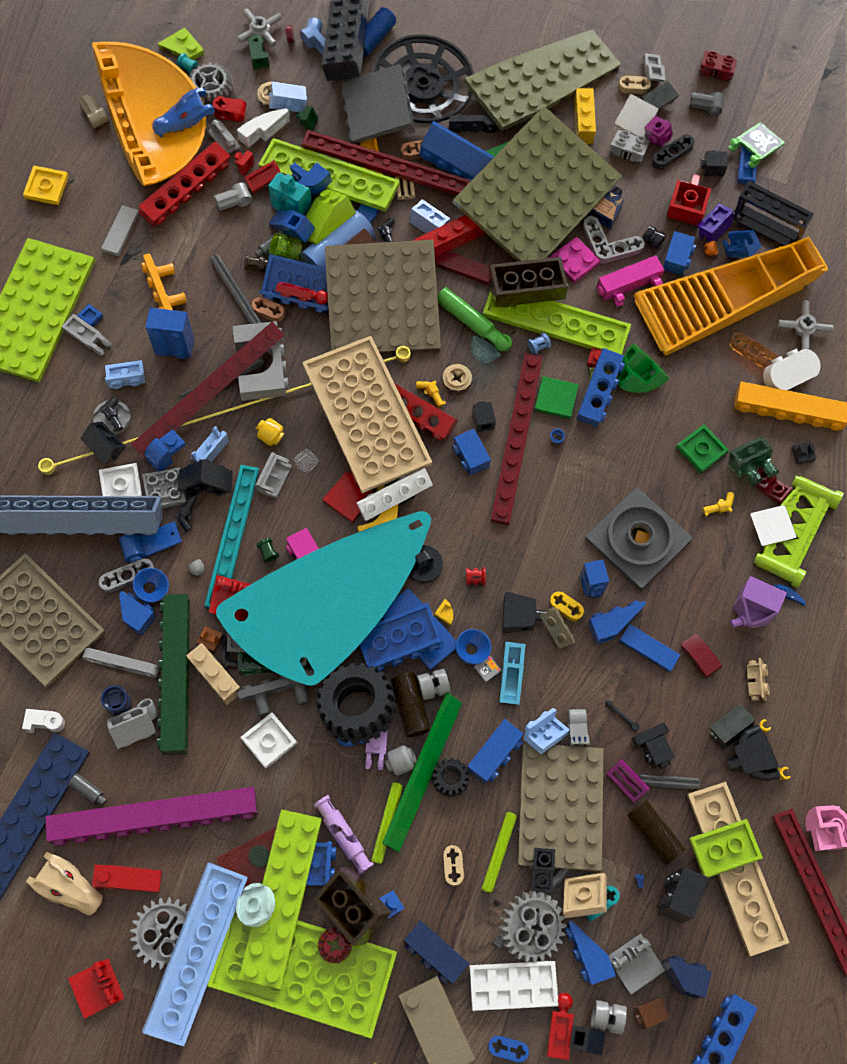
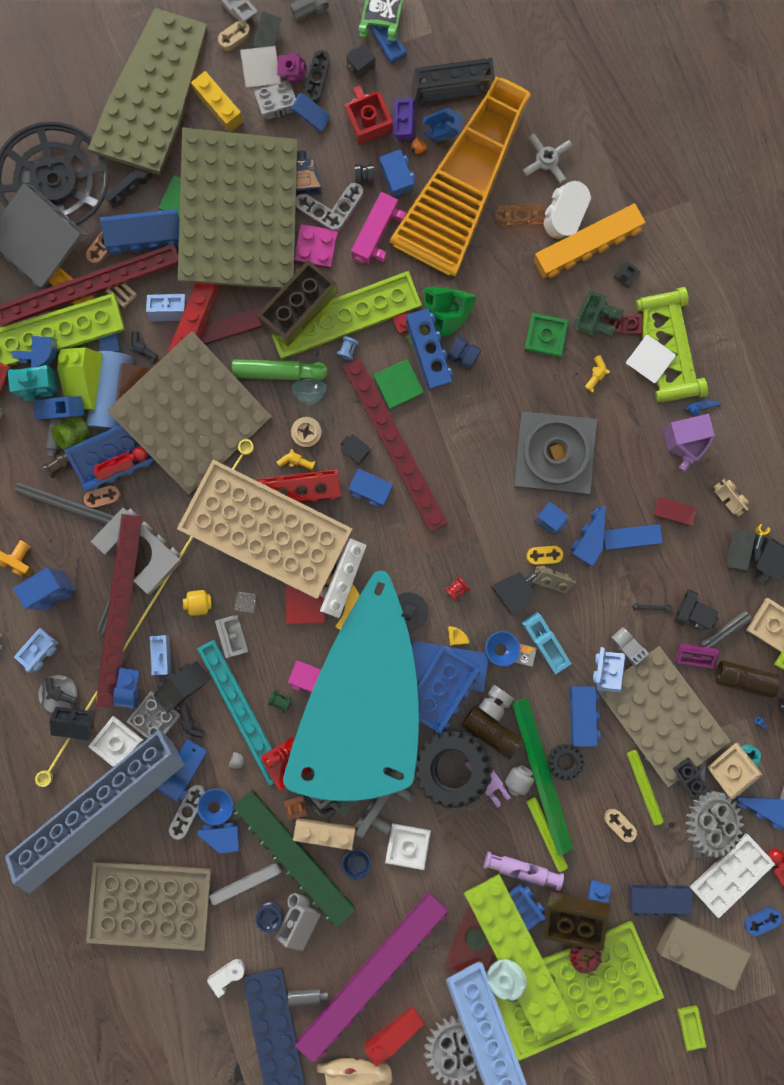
camera: 35 degrees left, 15 degrees up
(217, 717) = (356, 864): none -> dark blue hair
(558, 432) = (426, 422): blue hinge -> none
(626, 413) = (464, 353): none -> dark blue wheel
(647, 168) = (310, 112): none -> blue tile

